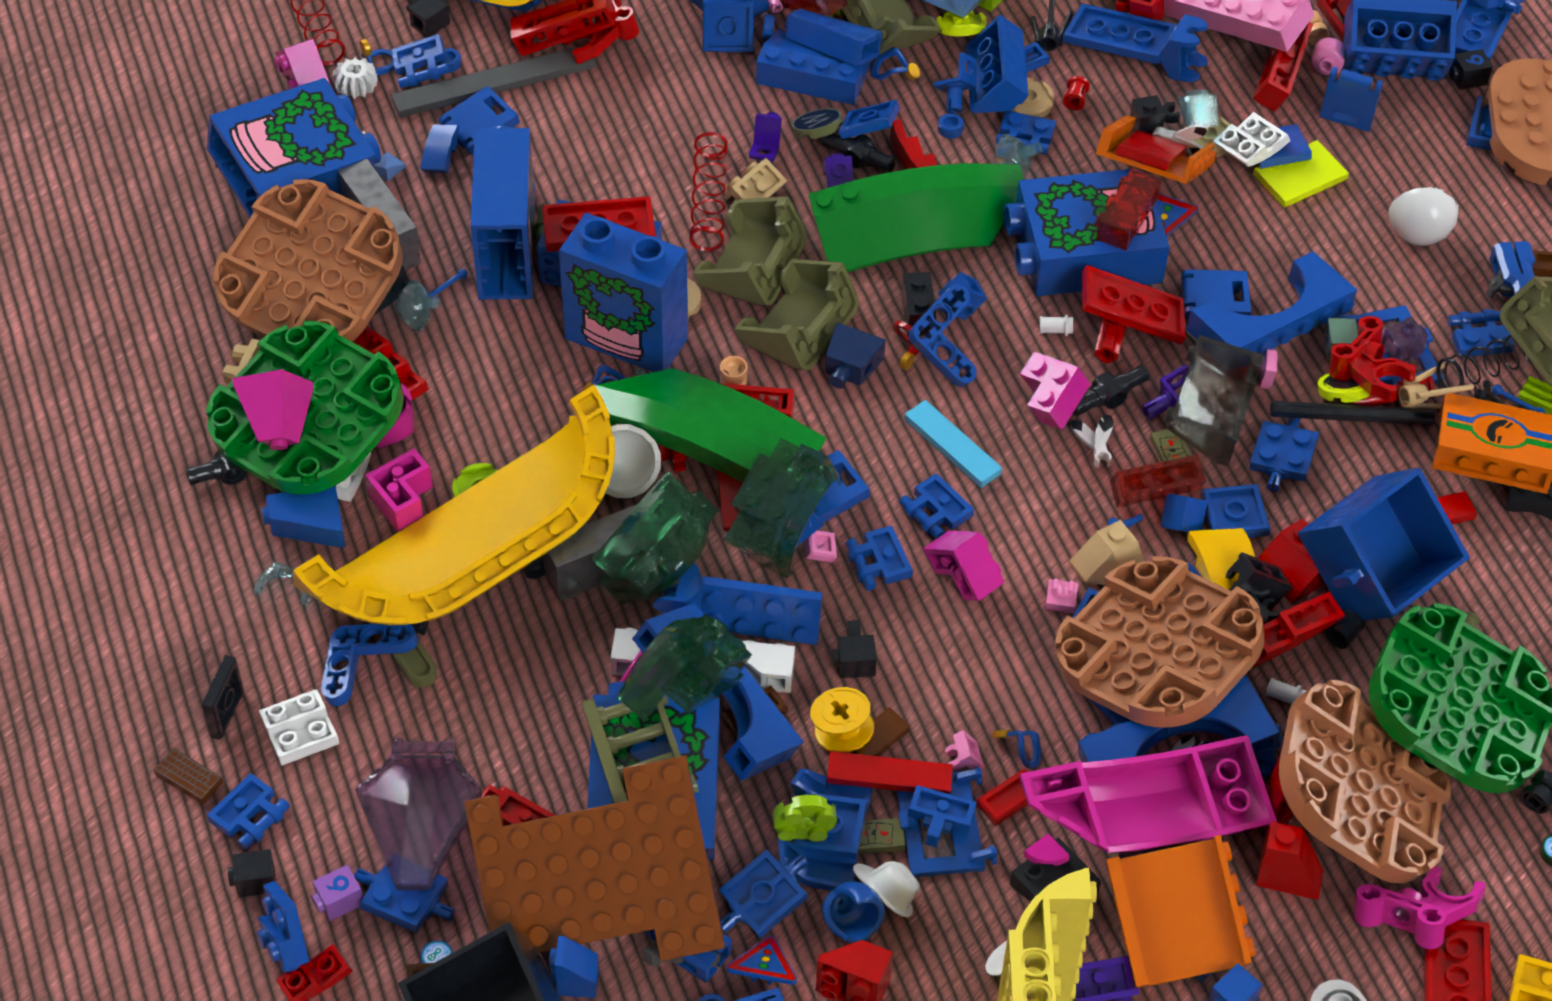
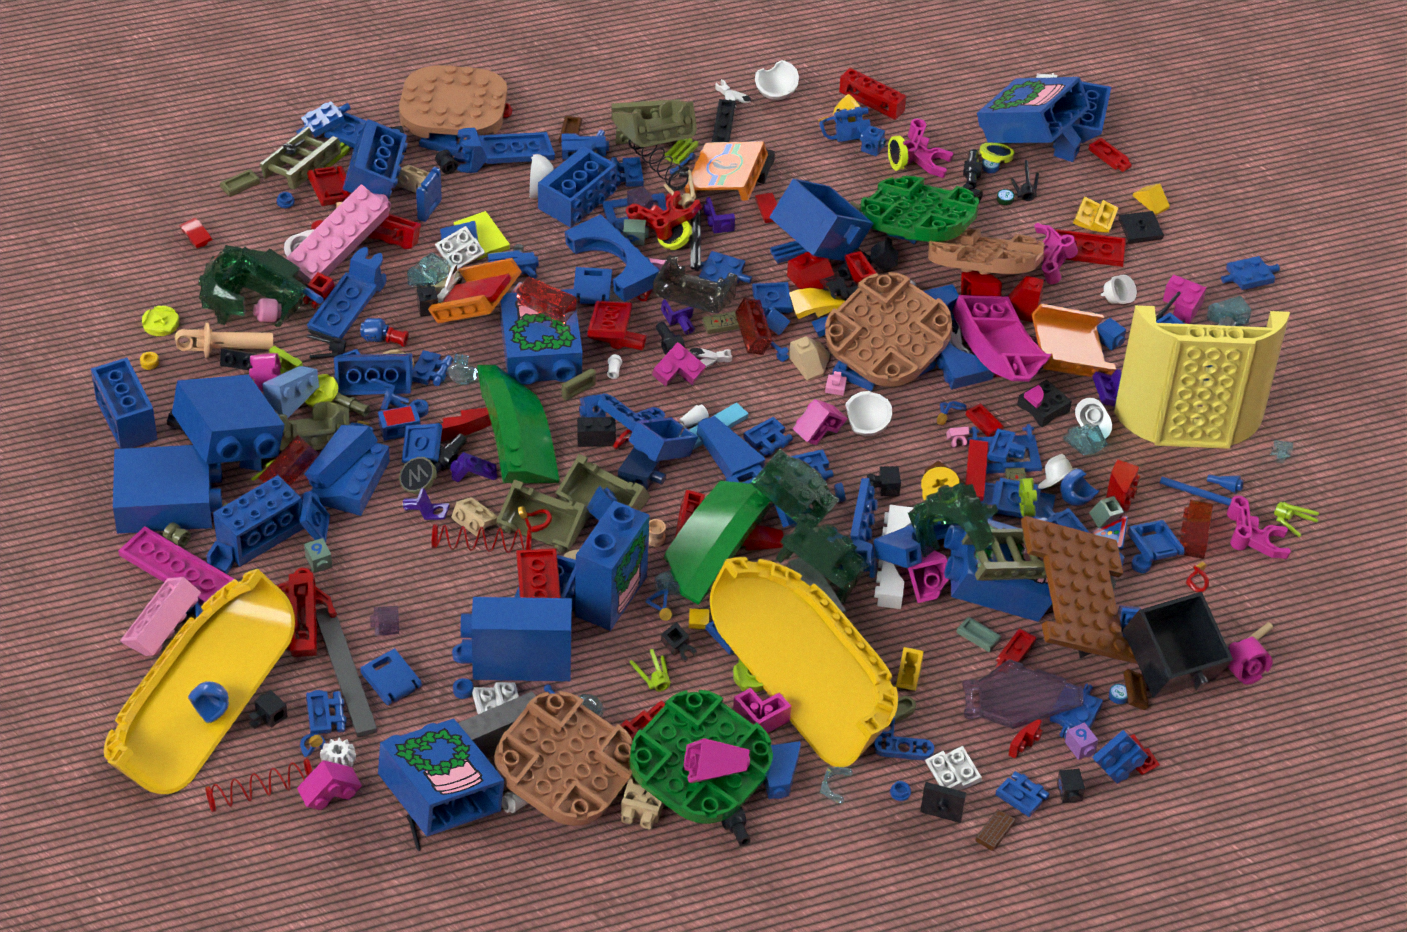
camera: 90 degrees left, 5 degrees down
(264, 659) = (900, 791): none -> blue plate
(353, 823) = (1025, 737): none -> red slope
(438, 148) = (422, 698): blue slope -> none
(439, 223) = (488, 698): none -> white slope
(462, 191) = (463, 688): none -> blue tile
(469, 383) = (659, 680): none -> lime plant
(481, 673) = (910, 668): none -> yellow slope
(529, 395) = (677, 641): none -> black brick
(558, 771) = (978, 634): none -> sand green tile
(563, 105) = (385, 620): none -> clear purple brick
(675, 40) = (318, 555): none -> sand green brick
(748, 224) = (524, 515): none -> red piece
(773, 308) = (601, 502): none -> blue slope
(803, 951) = (1106, 511): none -> sand green brick
(832, 592) = (839, 492): none -> blue tile
(894, 373) = (661, 439): none -> blue piece
(897, 452) = (727, 448): none -> blue slope
(916, 102) = (394, 421): none -> brick
(944, 57) = (352, 404): none -> olive pin
(967, 418) = (694, 416): none -> white cone
(974, 936) = (1086, 439): none -> clear light blue slope
(985, 625) = (868, 413): none -> white cylinder
(1011, 284) = (578, 384): none -> olive tile
(1084, 64) = (374, 329): none -> blue head
(1243, 203) = (526, 261): none -> blue piece
(1353, 654) = (884, 255): none -> black brick
(1390, 436) = (719, 223): none -> dark purple bracket
(1399, 95) = (411, 177): none -> tan bracket
(1413, 262) = (577, 186): none -> blue brick
(1442, 124) = (446, 162): none -> black wheel
(1481, 180) = (500, 148): none -> blue hinge

